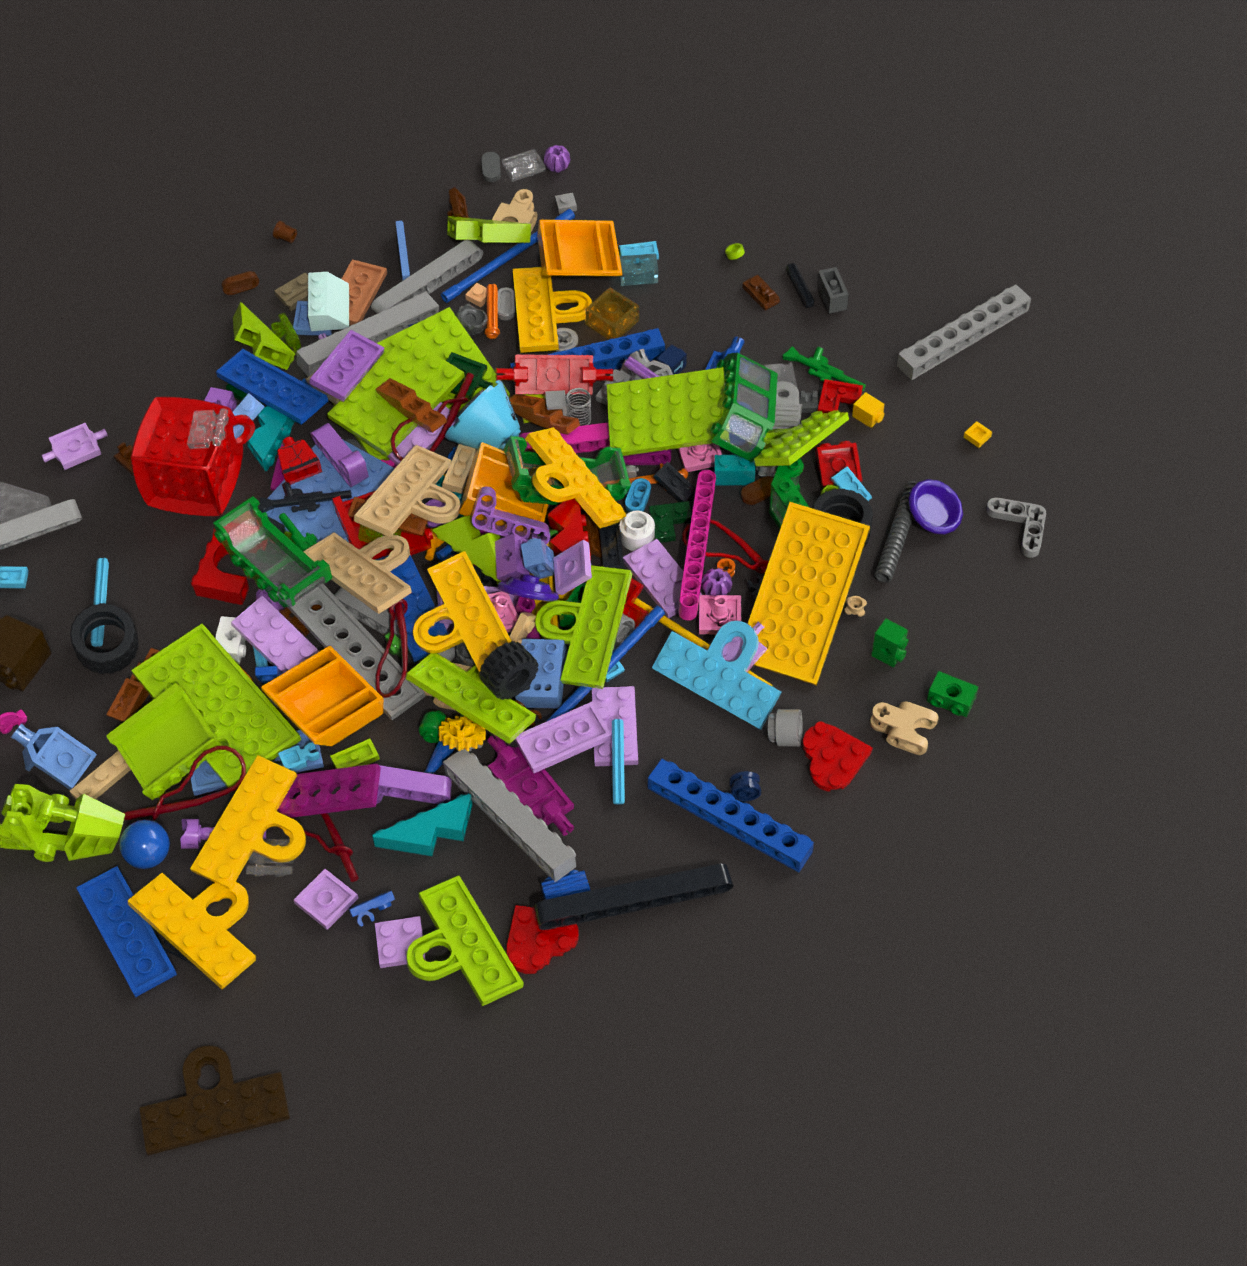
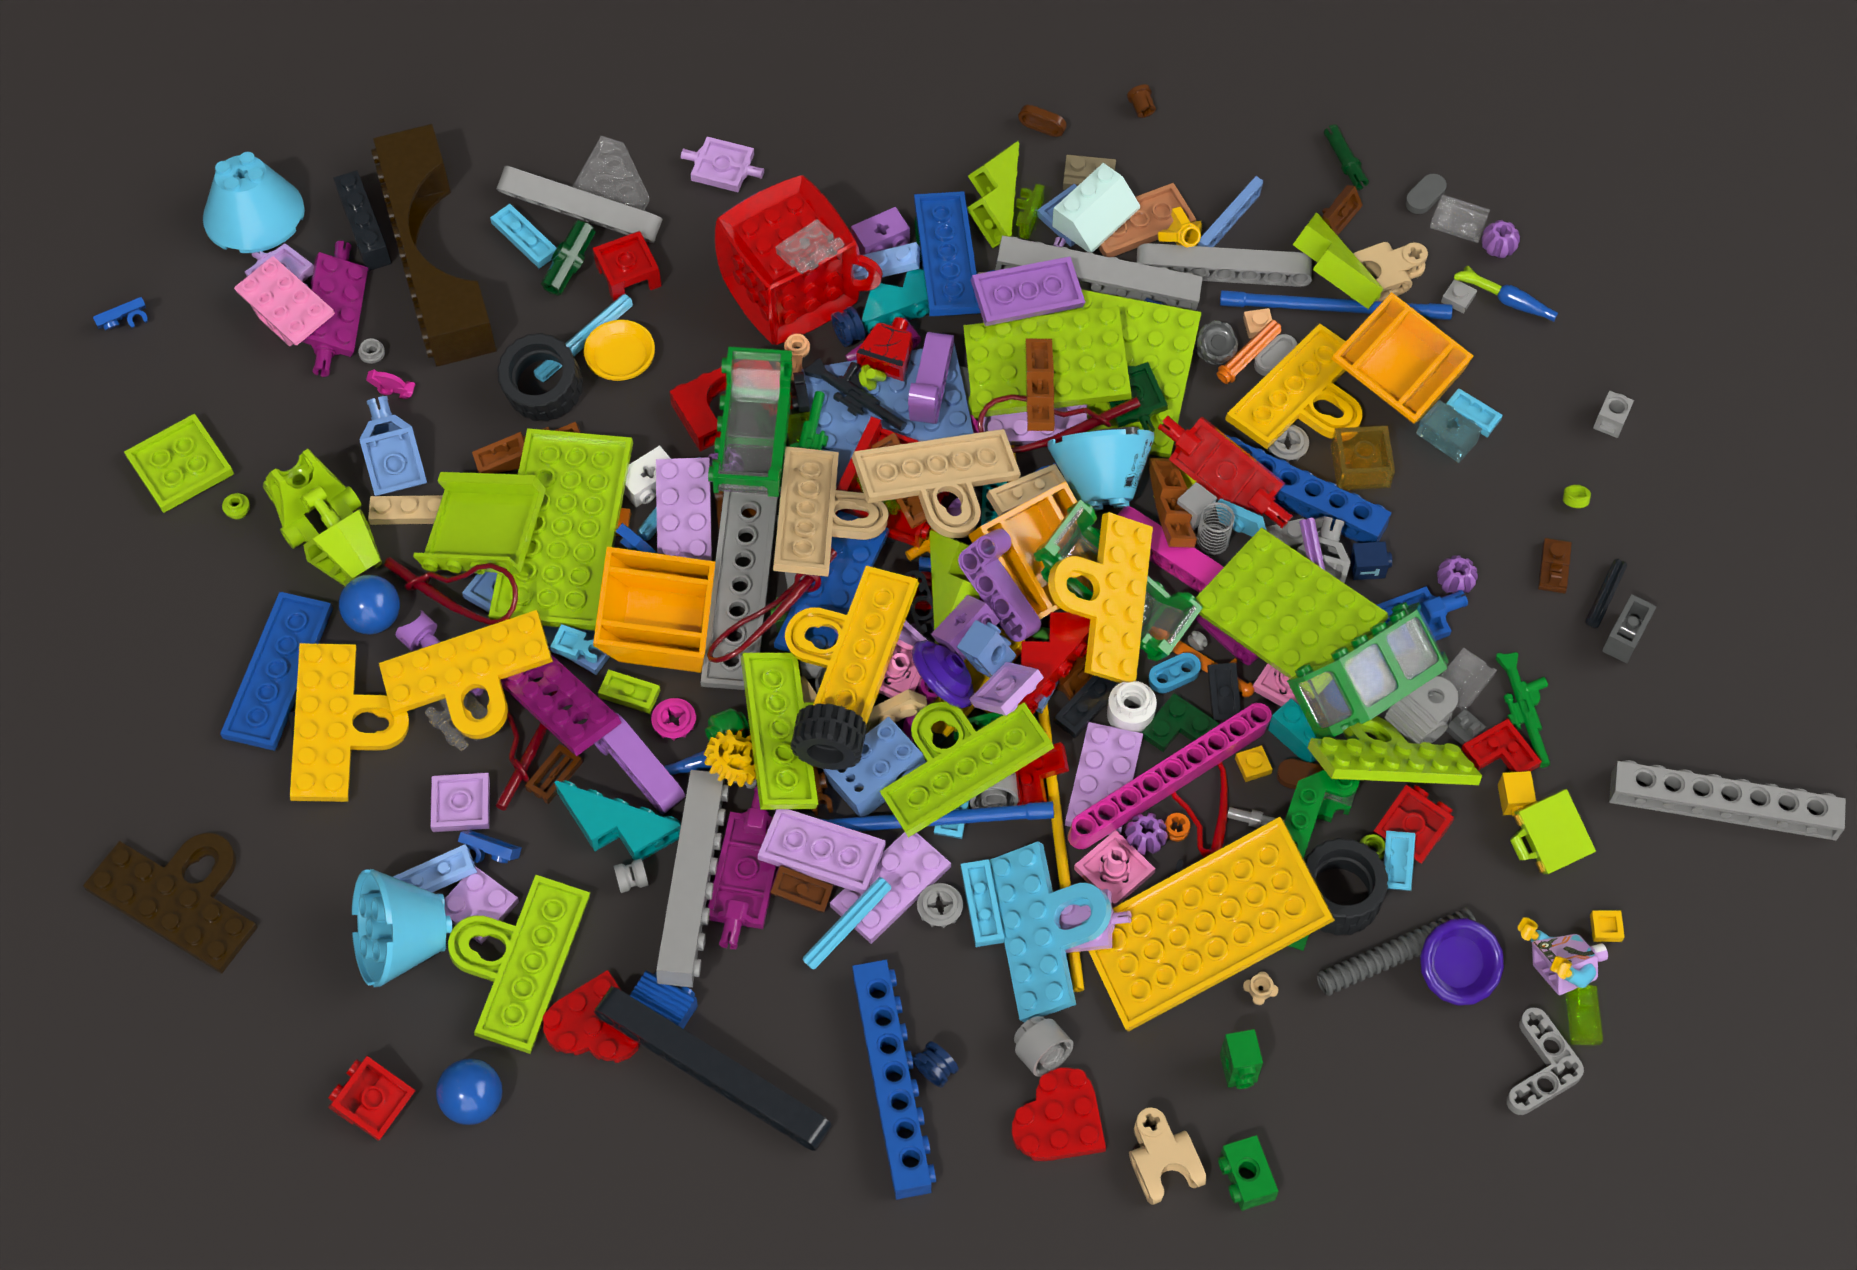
camera: 45 degrees right, 5 degrees up
(40, 566) = (568, 257): none -> dark green piece
(82, 540) = (626, 263): none -> red panel
(133, 588) = (619, 350): none -> yellow piece
(233, 501) = (797, 340): none -> light nougat plate
(255, 470) = (848, 326): none -> dark blue wheel
(302, 484) = (869, 377): none -> lime plate
(357, 950) = (441, 870): none -> light blue plate
(359, 819) = (546, 766): none -> reddish brown tile
(371, 992) = (396, 926): none -> medium azure cone
(387, 277) = (1181, 230): none -> yellow rock
(391, 743) = (677, 708): none -> dark pink gear
(426, 178) = (1350, 165): none -> dark green pin
(462, 1092) = (370, 1097): none -> red plate
(470, 847) = (631, 875): none -> light grey wheel
(516, 1034) = (469, 1091): none -> blue piece
(573, 768) = (801, 889): none -> reddish brown plate
(590, 183) = (1508, 294): none -> blue piece
(596, 389) = (1244, 520): none -> medium azure plate
(651, 704) = (948, 896): none -> light grey gear
(673, 690) = (982, 903): none -> medium azure plate
(708, 199) = (1611, 422): none -> light grey brick
(722, 333) = (1457, 574): none -> medium lavender piece
(727, 506) = (1253, 763): none -> yellow plate
(760, 530) = (1254, 818): none -> light grey bar
(907, 412) = (1552, 832): none -> lime piece
(978, 465) = (1563, 960): none -> torso
(1013, 484) = (1584, 1016): none -> clear neon green plate

